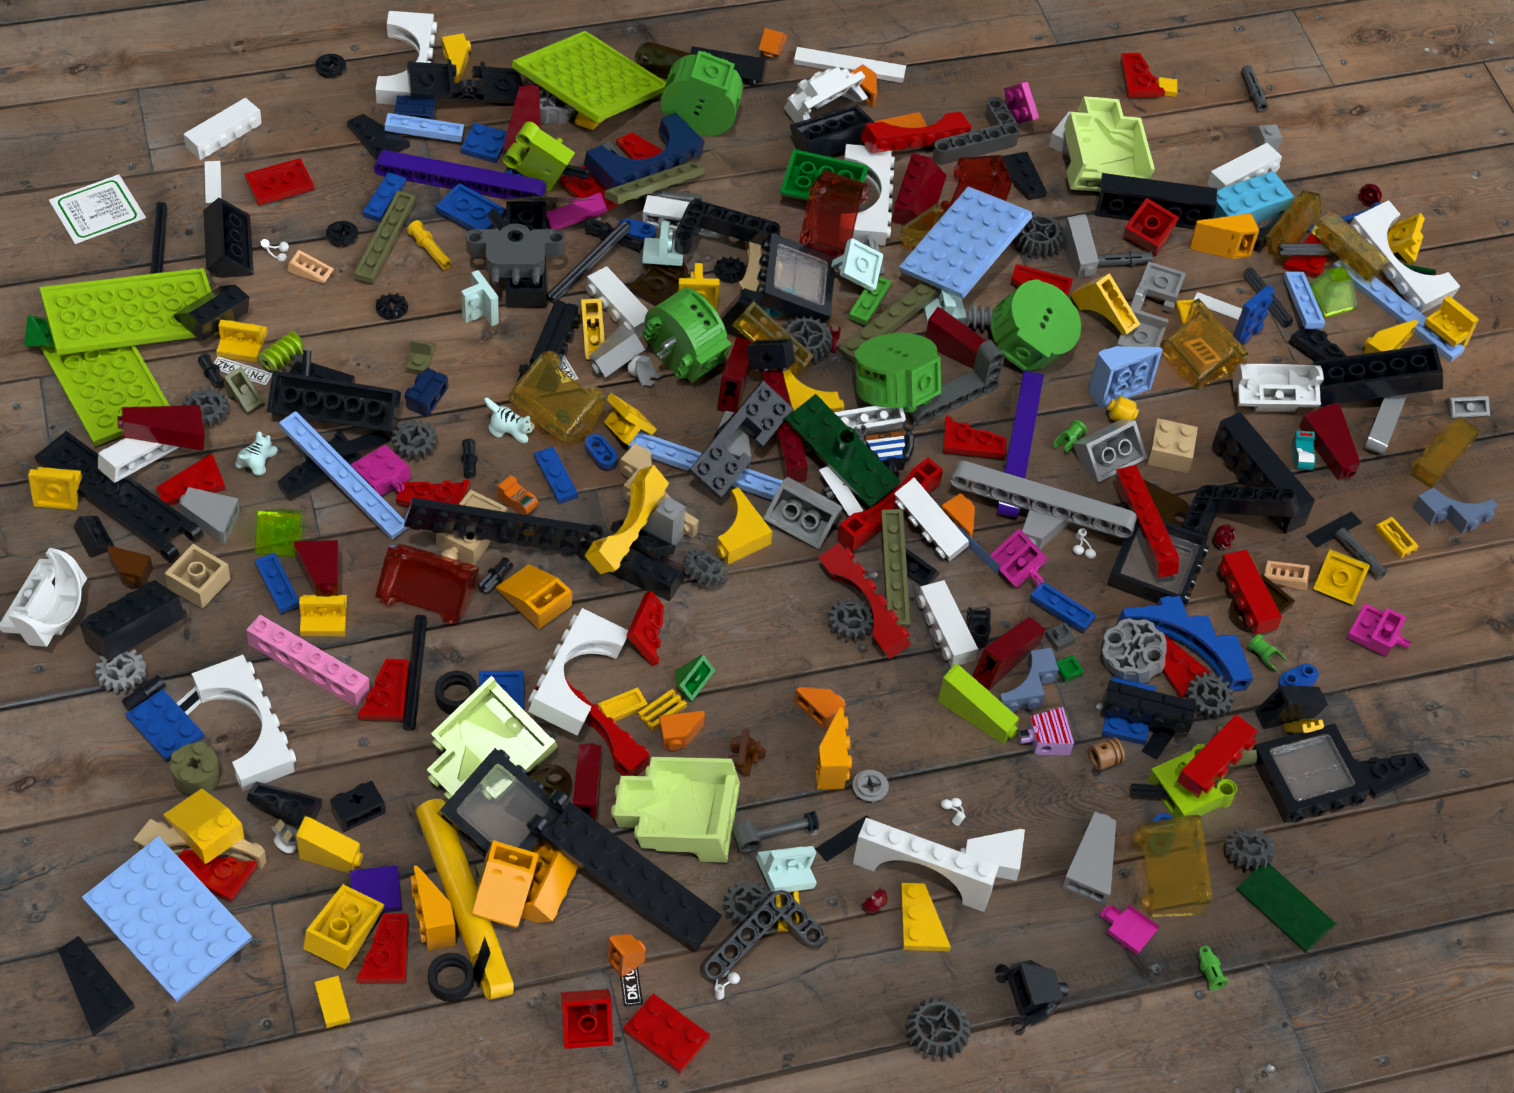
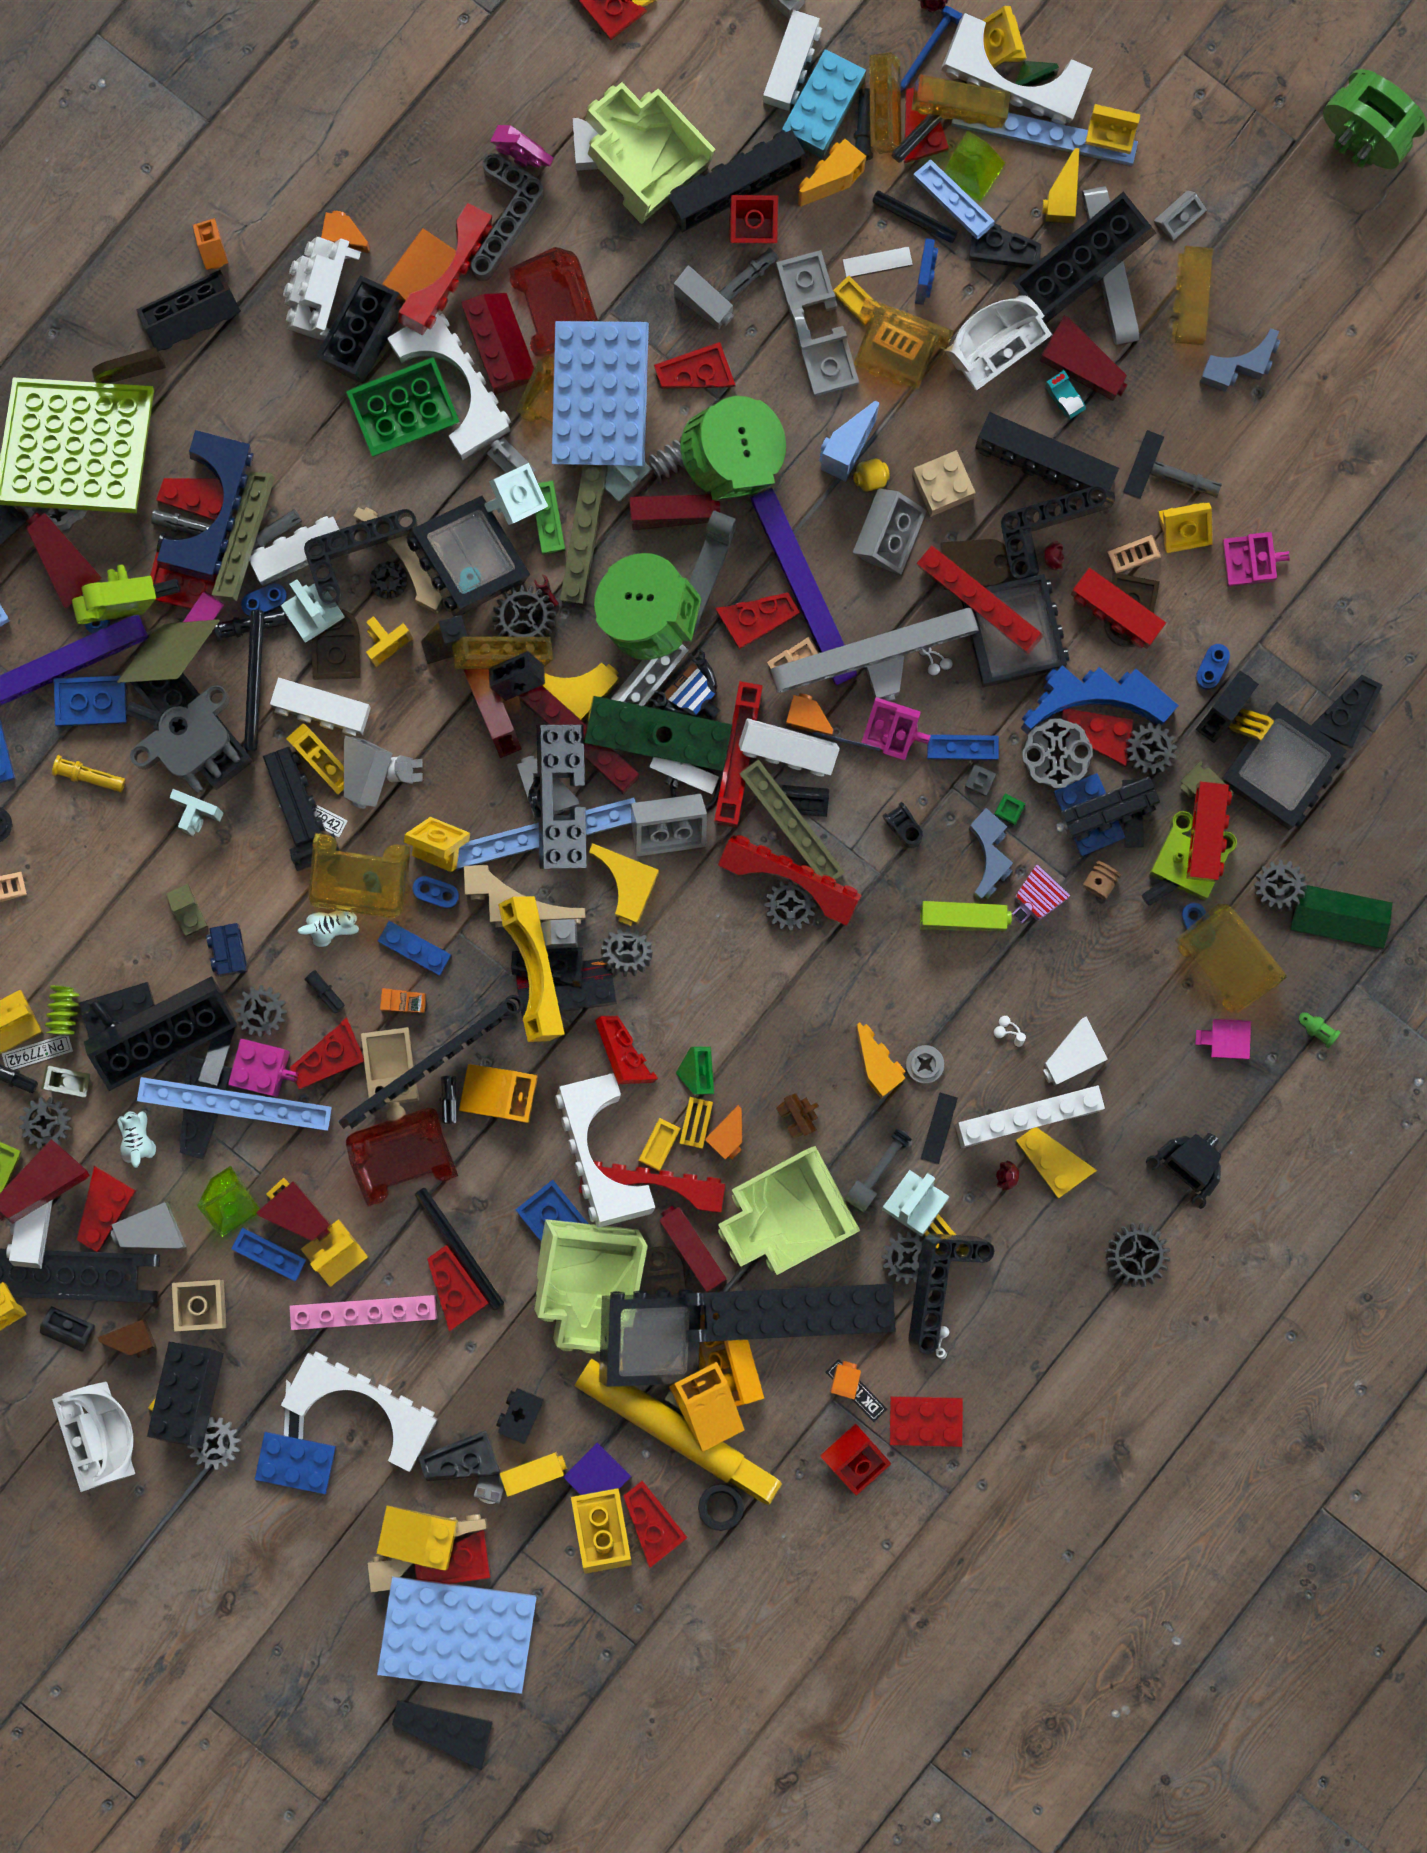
camera: 30 degrees left, 30 degrees up
(143, 692) = (251, 1448): black axle -> none
(194, 768) = (347, 1492): olive brick -> none
(332, 1001) = (644, 1598): yellow tile -> none
(384, 309) = (122, 870): black gear -> none
(385, 237) = (38, 797): olive plate -> none
(432, 913) = (669, 1469): light orange slope -> none
(453, 678) = (510, 1225): black tyre -> none
(481, 962) = (742, 1486): black sticker -> none
(484, 143) = (33, 602): blue plate -> none
(687, 334) = (424, 715): bright green piece -> none
(703, 93) = (208, 392): bright green piece -> none
(819, 704) = (829, 1016): orange slope -> none
(828, 60) = (306, 213): white tile -> none
(832, 212) = (448, 457): clear red windscreen -> none
(947, 623) = (875, 845): white brick -> none
(1007, 652) = (950, 837): dark red slope -> none
(1024, 175) = (576, 232): black wing -> none
(1037, 239) = (643, 303): dark grey gear -> none
(1070, 435) = (843, 540): bright green piece -> none
(1093, 863) = (1158, 997): light grey slope -> none
(1106, 298) = (773, 355): yellow arch -> none
(1264, 650) = (1167, 659): bright green piece -> none
(1393, 538) = (1186, 434): yellow tile -> none

